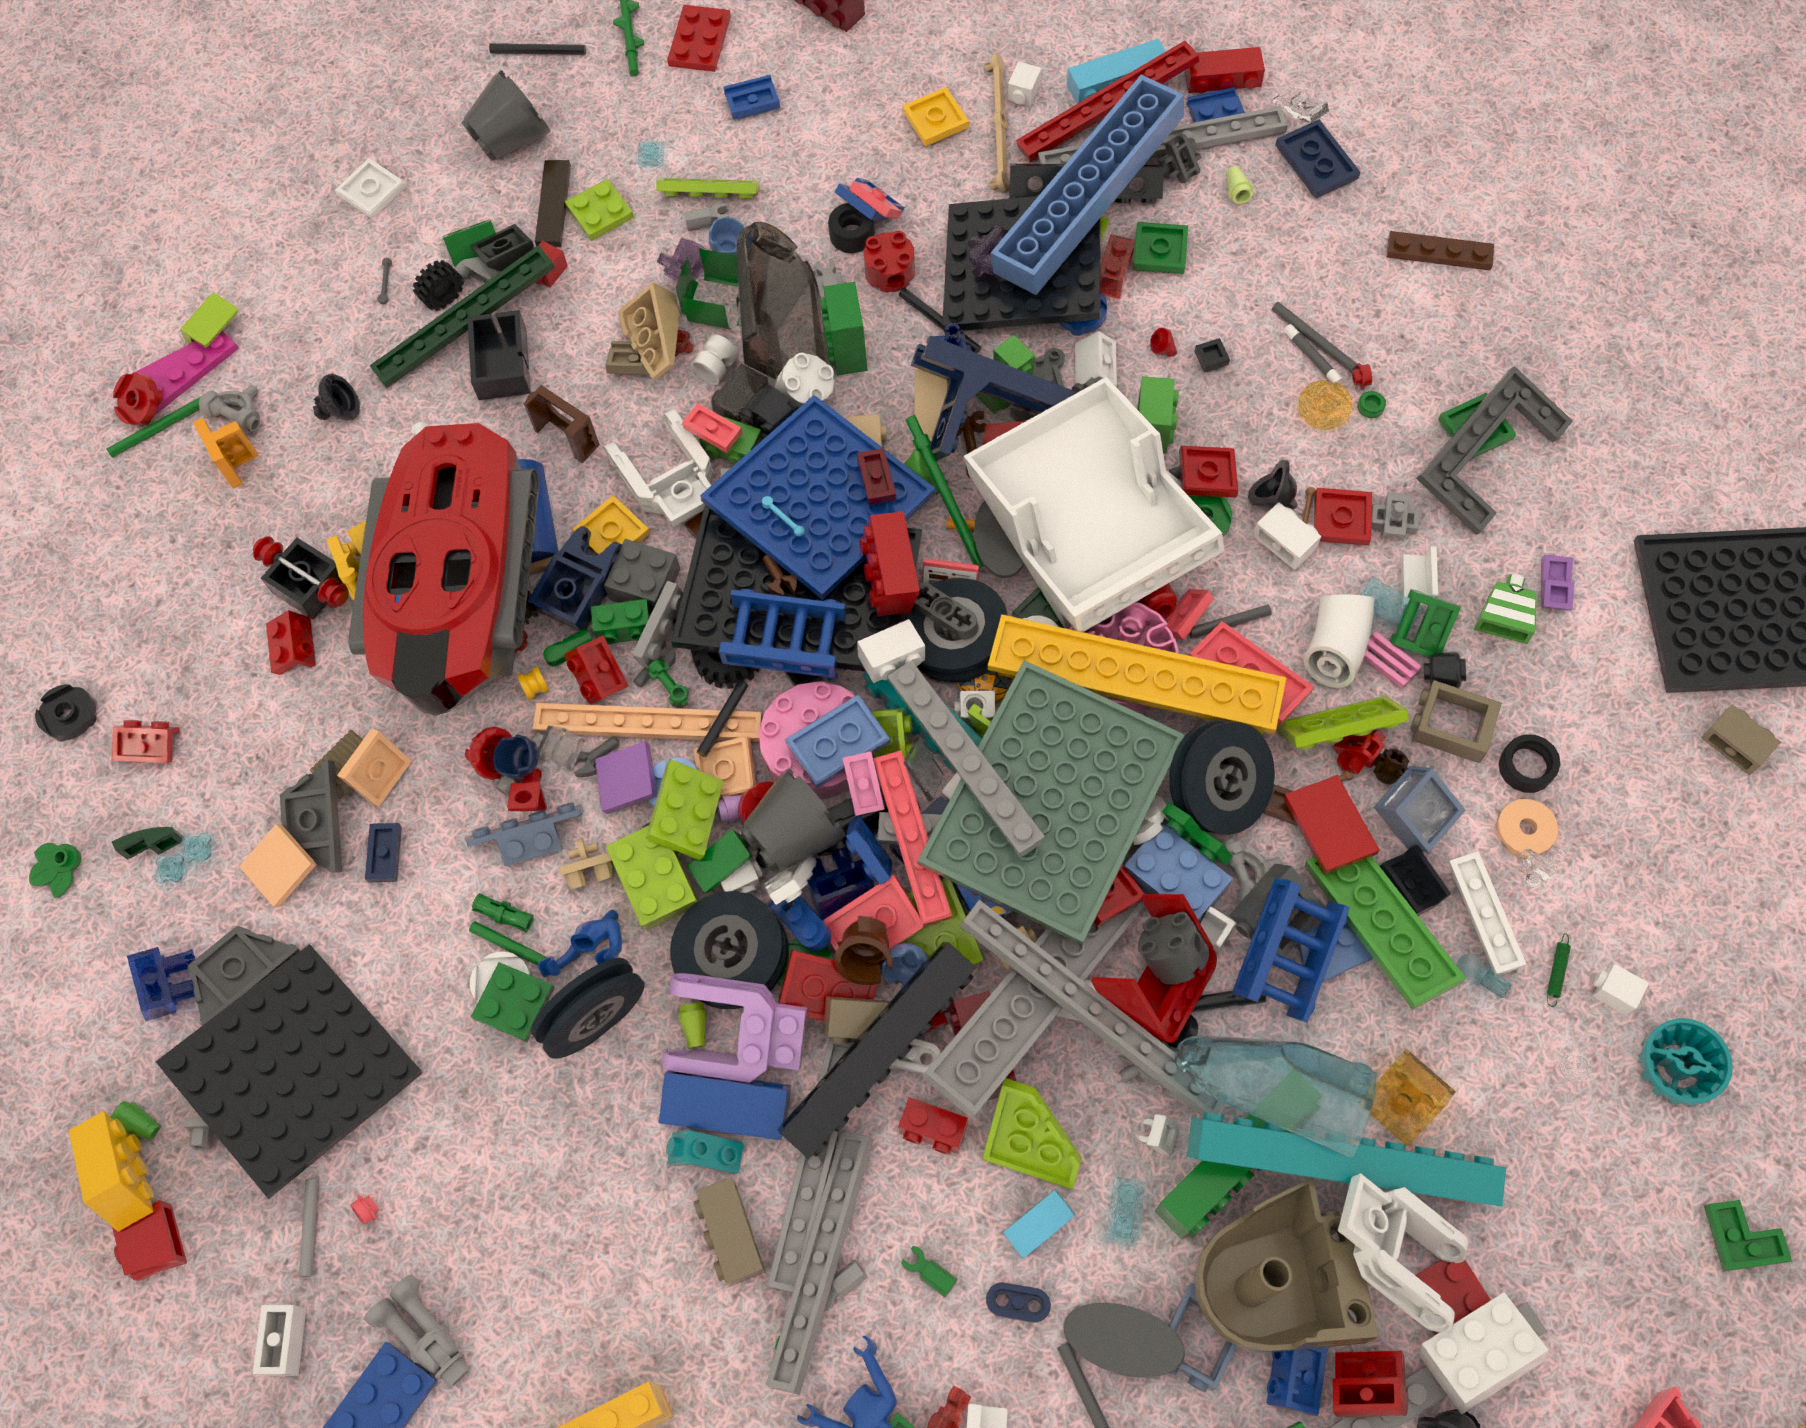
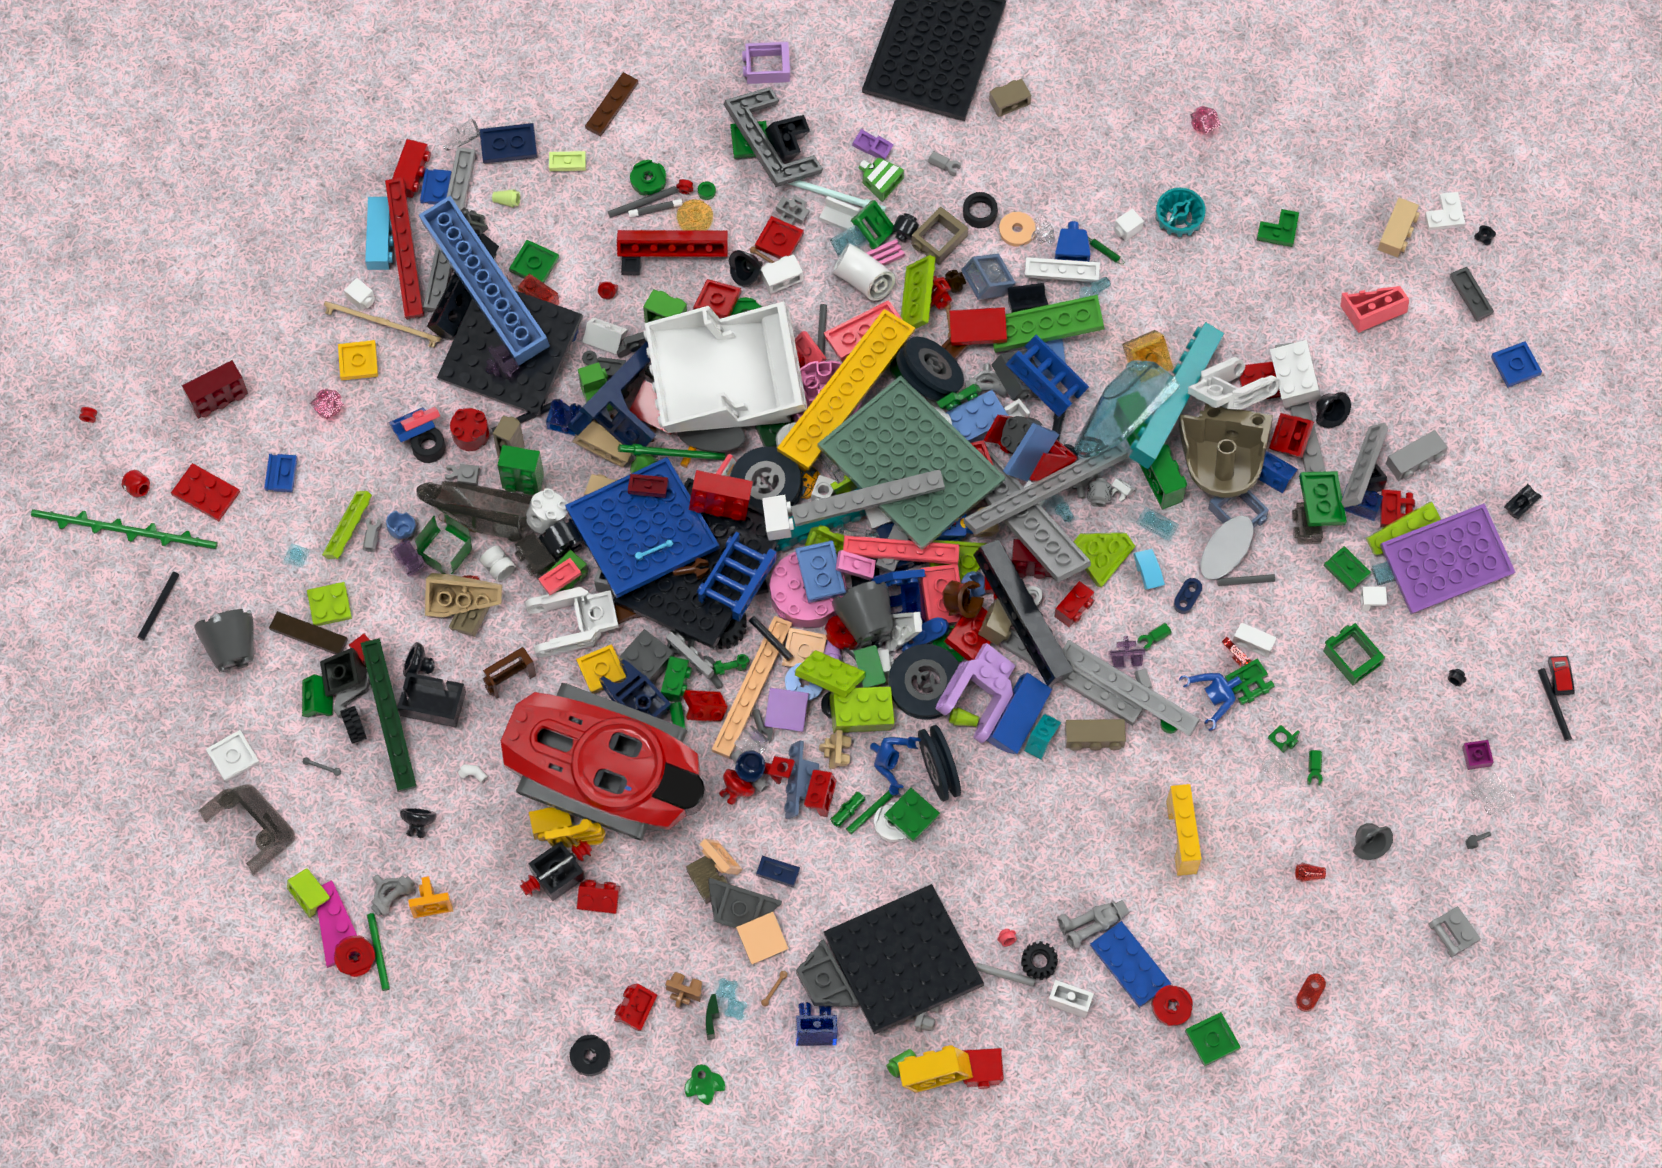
camera: 75 degrees left, 0 degrees up
(175, 792) = (692, 992): none -> medium nougat hips
(236, 914) = (783, 975): none -> medium nougat hinge
(291, 241) = (276, 832): none -> clear smoke windscreen
(319, 1268) = (1048, 952): none -> black tyre
(512, 866) = (820, 791): none -> red bracket
(533, 683) = (697, 745): yellow wheel -> none
(547, 322) = (418, 661): none -> black hair
(860, 104) = (327, 403): none -> clear pink brick
(884, 300) = (508, 433): none -> dark tan brick
(886, 1235) = (1117, 656): none -> clear purple hips
(947, 621) = (769, 479): dark grey beam -> none
(1088, 1054) = (1061, 508): none -> clear light blue axle
(1138, 1101) = (1099, 492): none -> light grey head
(1154, 966) = (1029, 452): none -> medium blue tile
(1266, 389) = (672, 243): none -> red brick
(1327, 230) = (567, 161): none -> yellowish green plate
(1349, 341) = (650, 168): none -> green plate
(1451, 568) = (834, 194): none -> light aqua bar
(1506, 459) = (784, 136): none -> black brick
(1539, 916) = (1073, 244): none -> blue torso
(1580, 686) = (944, 163): none -> light grey bar
(1637, 409) = (766, 49): none -> lavender window

